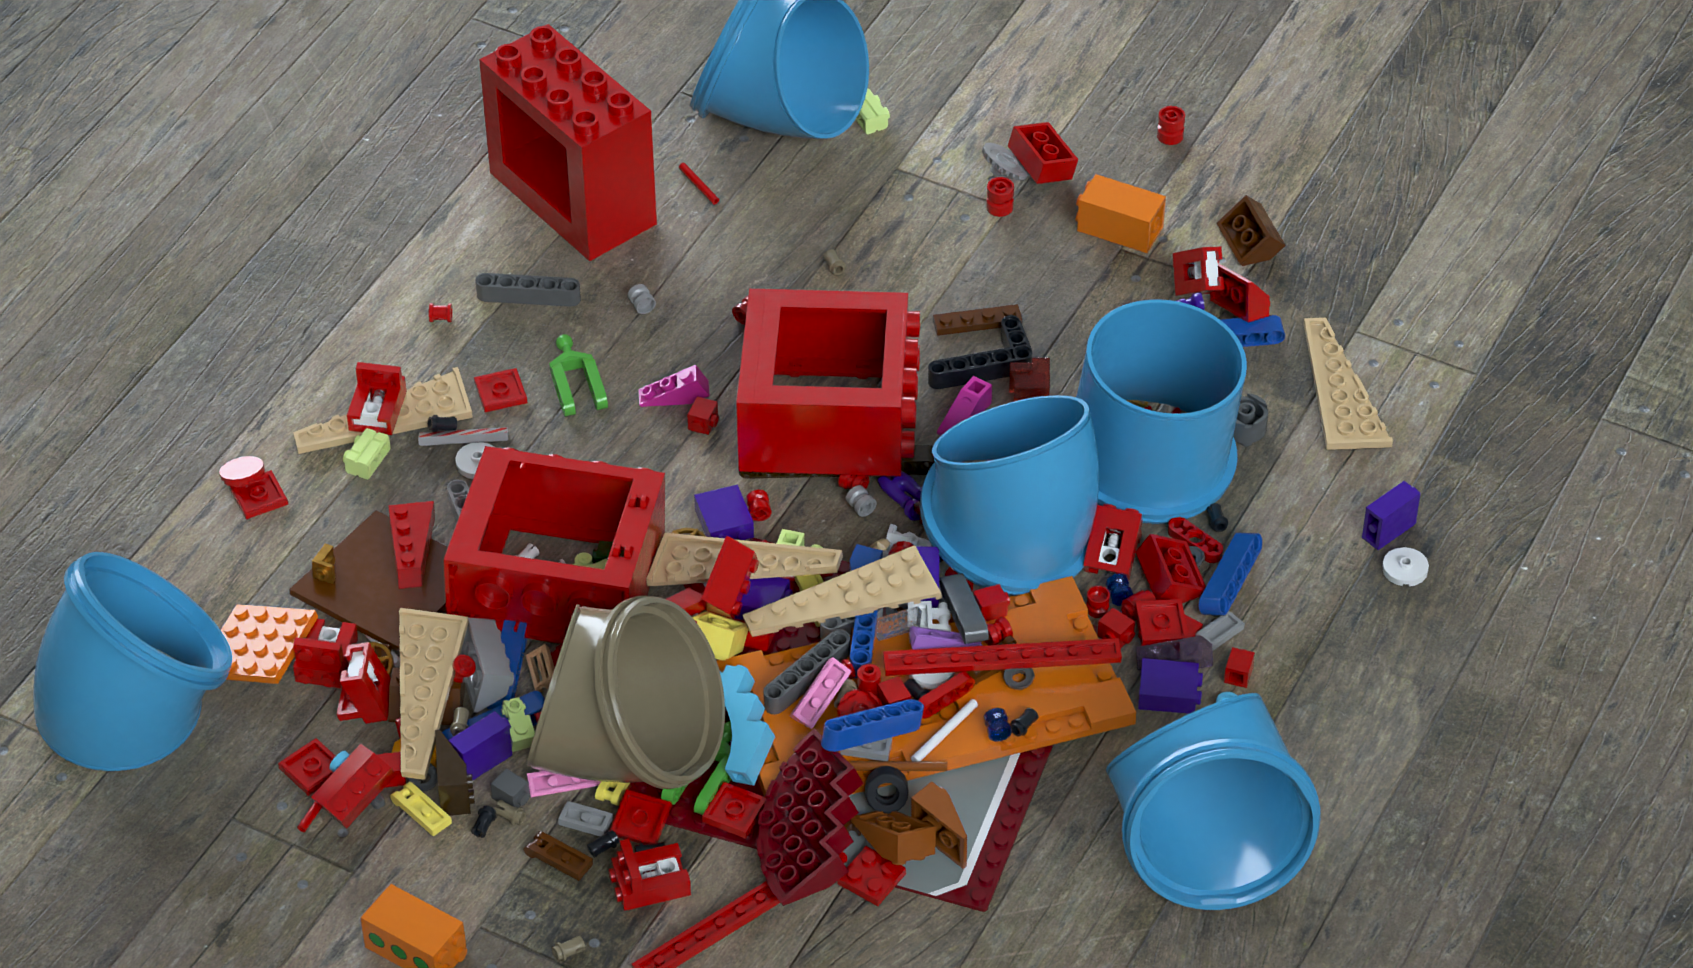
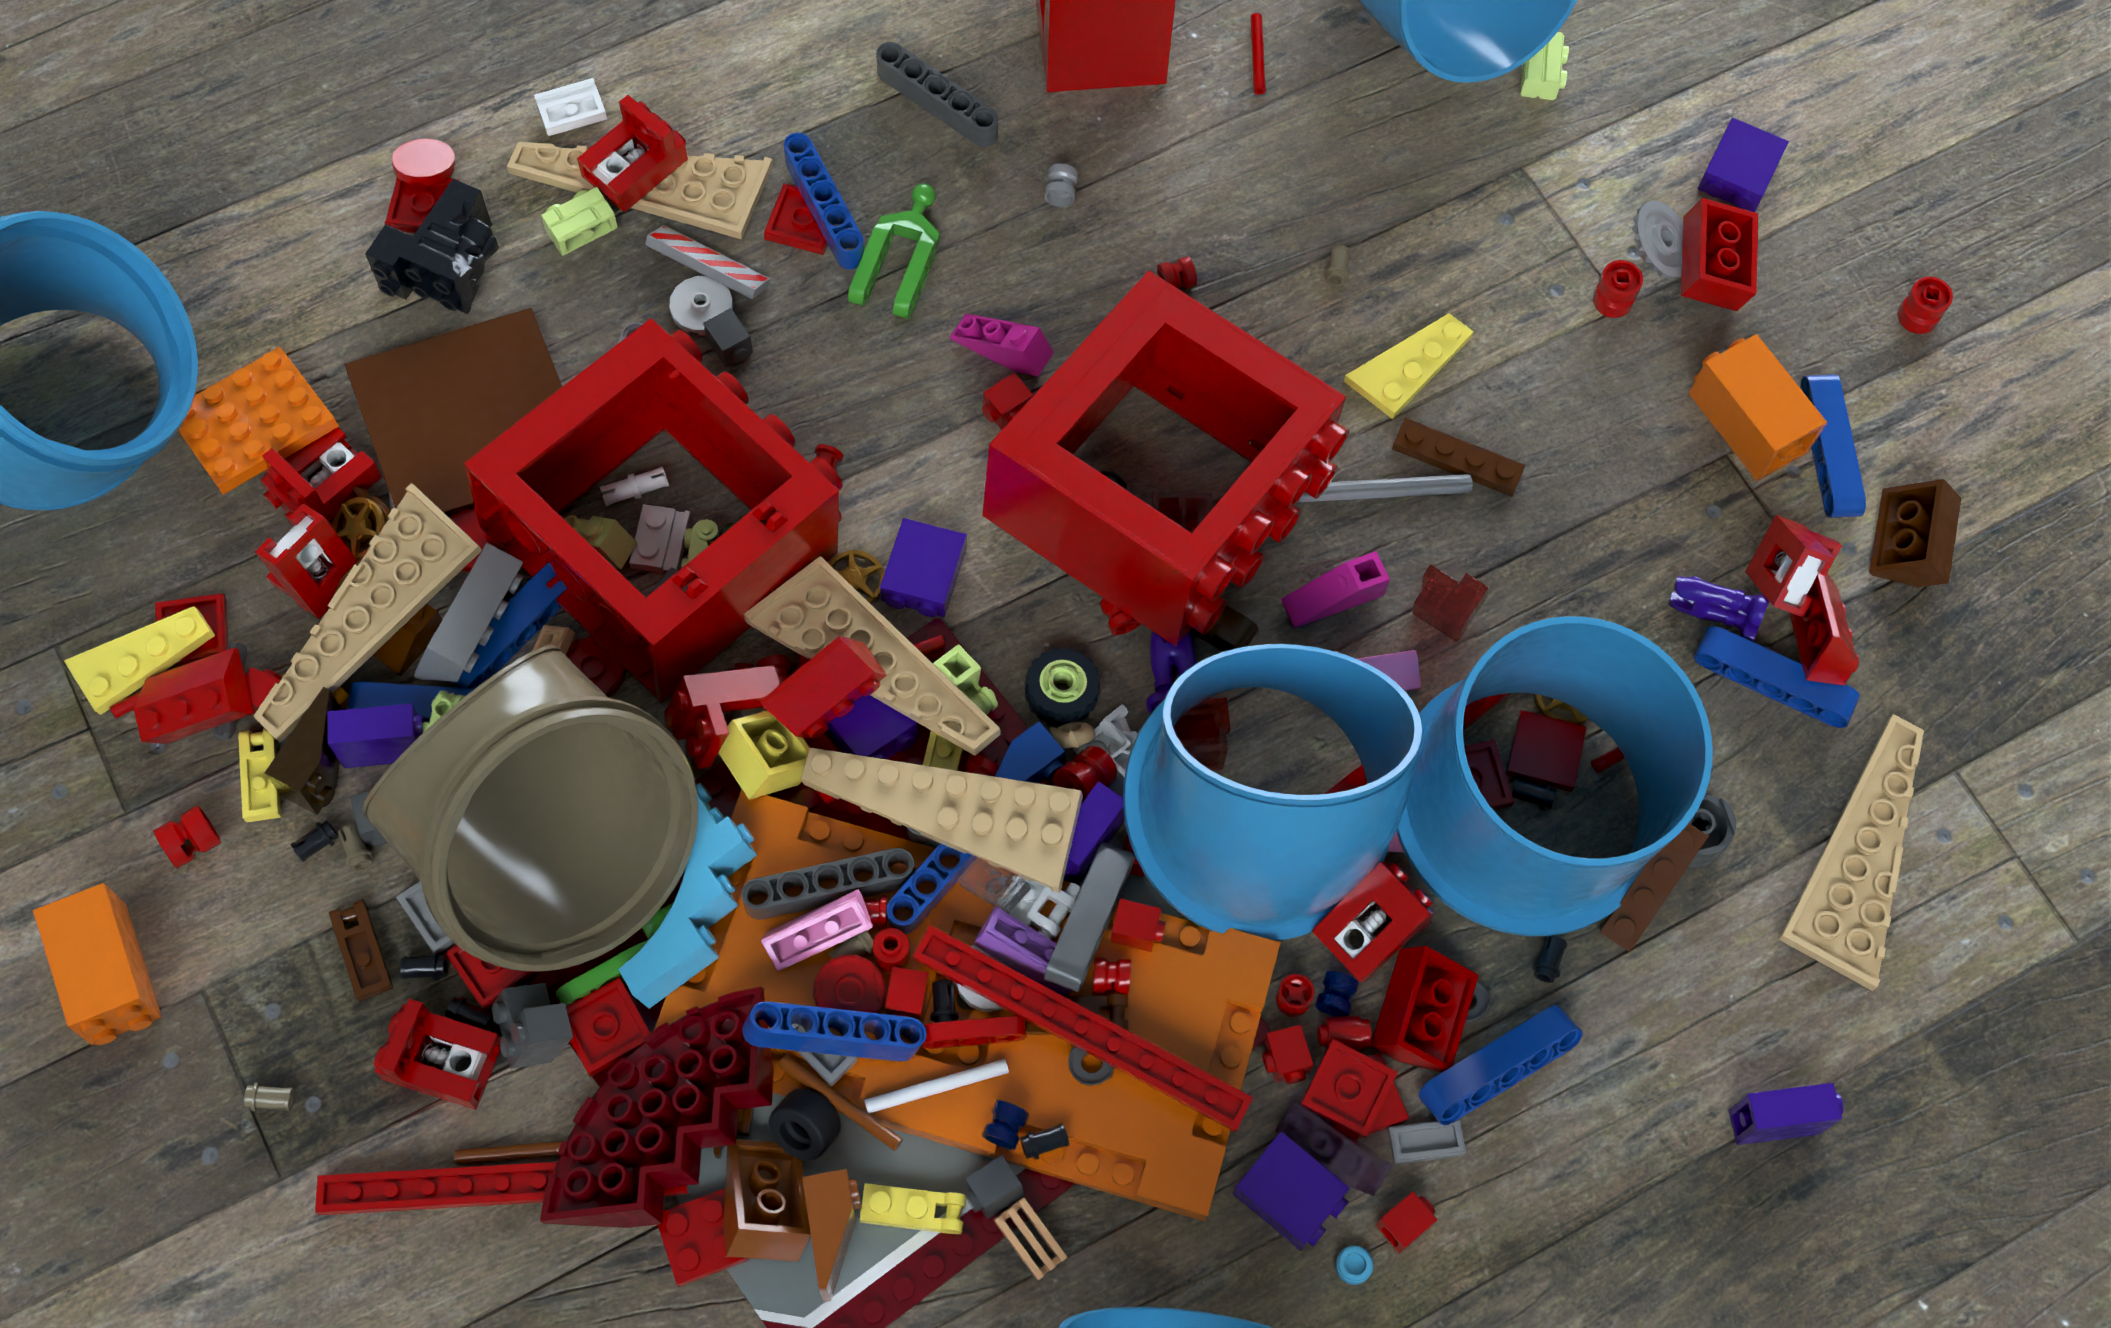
camera: 30 degrees right, 20 degrees up
(292, 795) = (122, 665): none -> light yellow wing
(304, 510) = (443, 254): none -> black brick
(307, 402) = (570, 107): none -> white plate
(323, 564) = (399, 352): pearl gold bracket -> none
(338, 760) = (208, 649): medium azure tile -> none
(407, 855) = (187, 836): none -> red wheel
(411, 534) = (524, 377): red wedge -> none
(440, 312) = (812, 68): red bush -> none
(441, 423) = (693, 229): black pin -> none
(460, 720) = (376, 686): dark tan pin -> none
(464, 667) = (427, 612): red plate -> none
(510, 370) = (820, 188): none -> blue beam
(695, 829) = (530, 1025): none -> dark grey brick
(731, 897) = (507, 1152): none -> dark orange bar
(759, 505) = (977, 577): red wheel -> none
(850, 528) = (1067, 668): none -> black wheel
(861, 501) = (1107, 646): light grey wheel -> none
(918, 283) = (1408, 367): none -> light yellow wing
(960, 347) = (1393, 488): none -> light grey axle
(979, 799) = (911, 1208): none -> light yellow plate
(984, 365) = (1422, 529): black beam -> none
(1012, 764) = (993, 1188): none -> dark grey brick
(1018, 105) = (1743, 165): none -> dark purple brick
(1050, 777) = (1049, 1264): none -> light nougat tile
(1182, 219) = (1835, 449): none -> blue beam
(1191, 531) = (1512, 997): red beam -> none
(1244, 453) = (1652, 888): none -> reddish brown plate
(1405, 566) = (1738, 1209): white plate -> none

